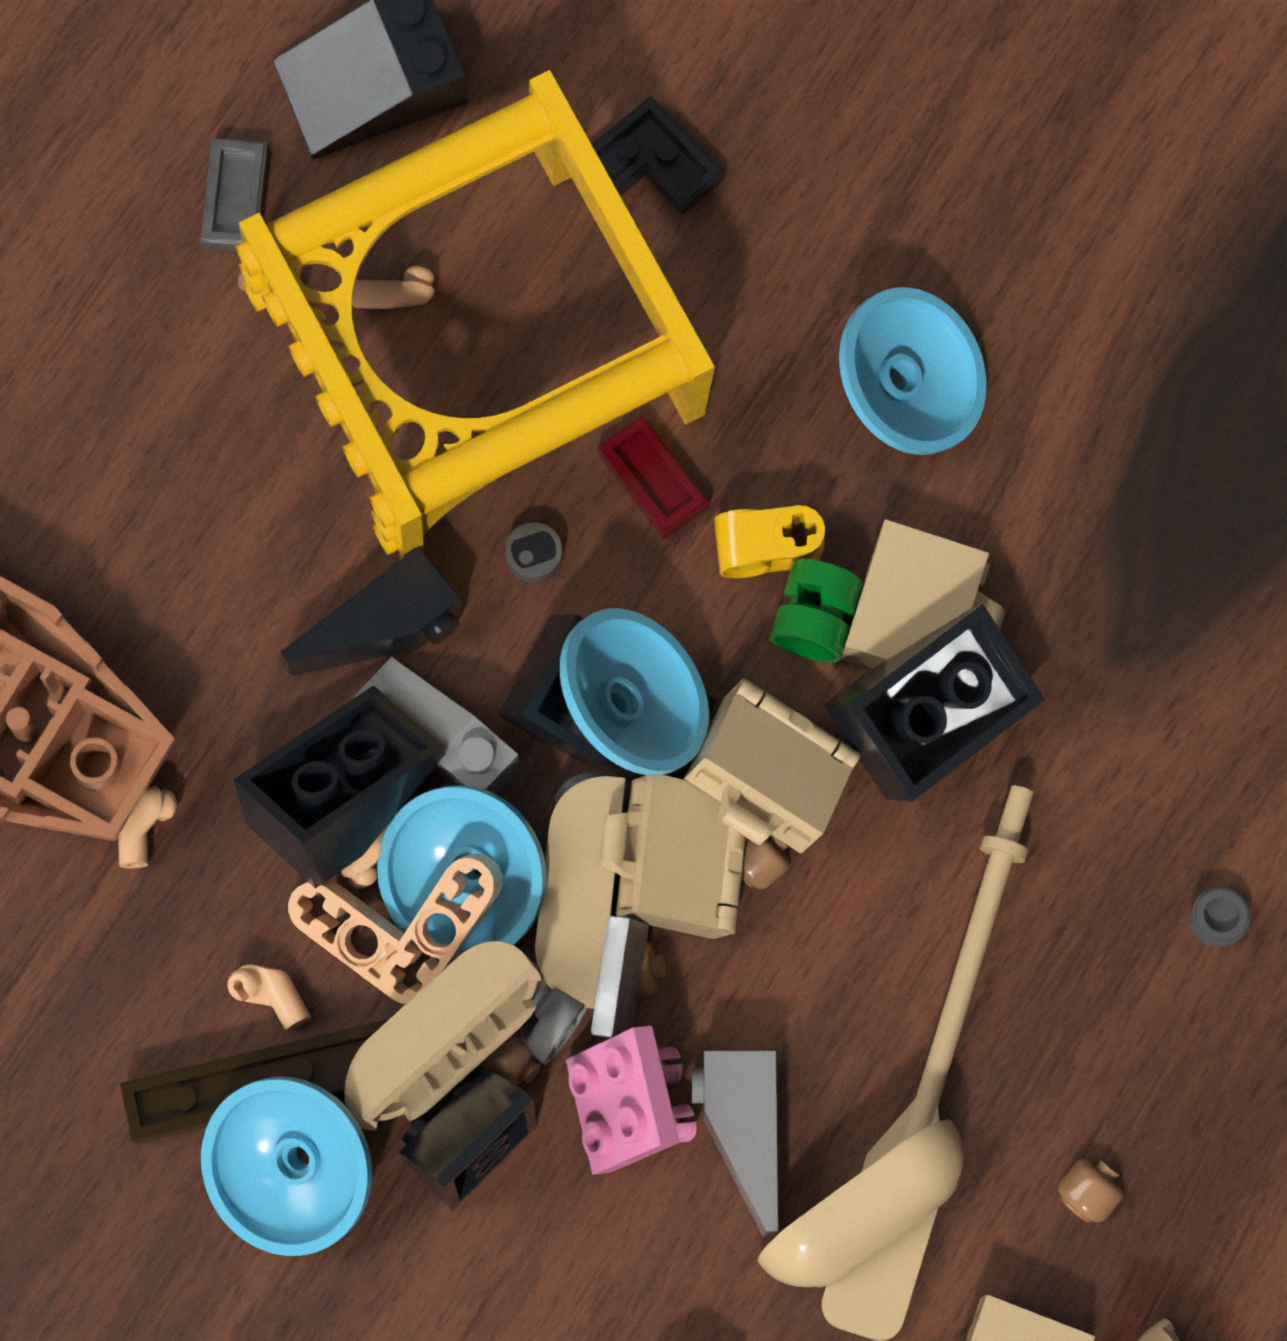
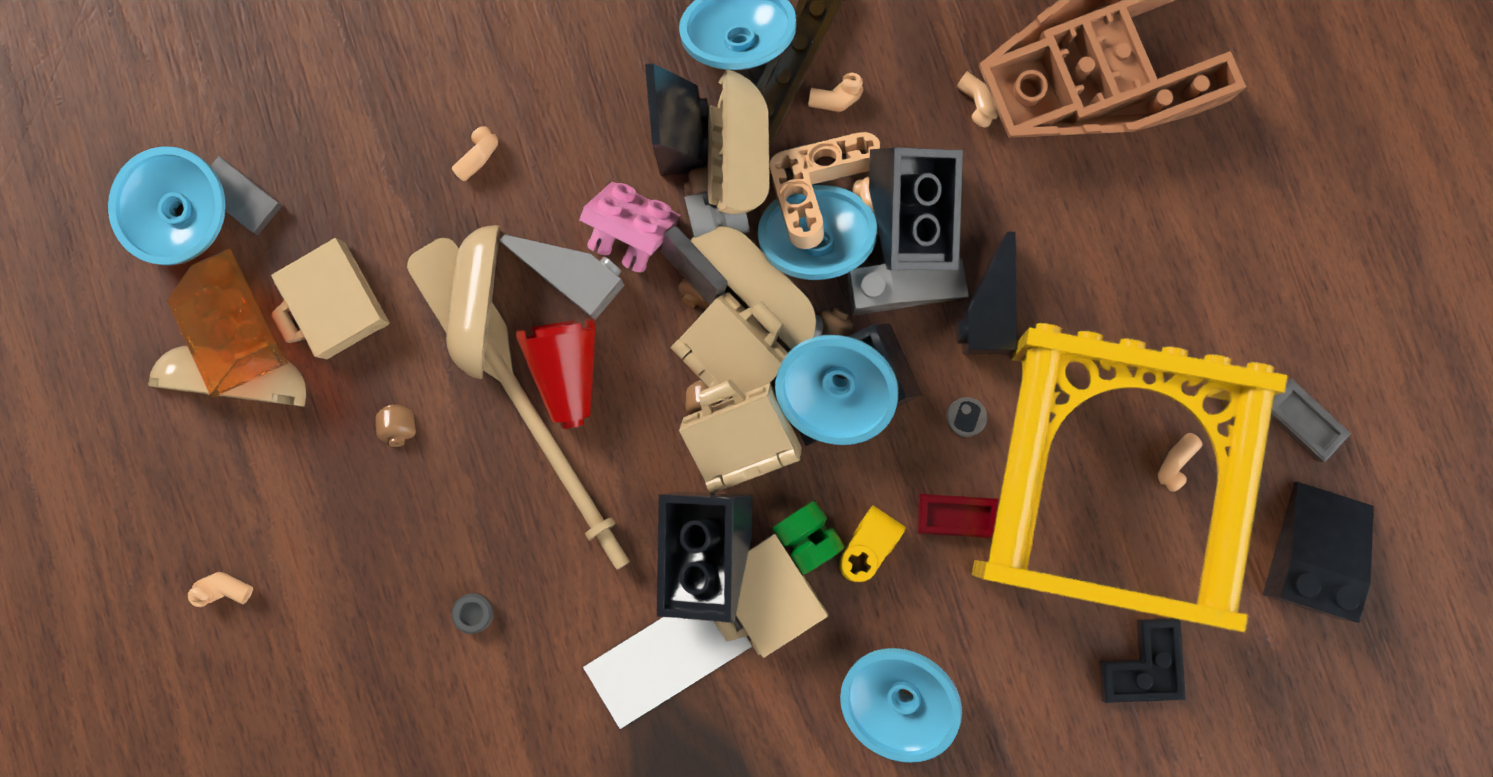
camera: 135 degrees right, 10 degrees up
(548, 774) = (836, 323): none -> medium nougat piece
(858, 1041) = (562, 368): none -> red cone
(1098, 668) = (659, 664): none -> white sticker

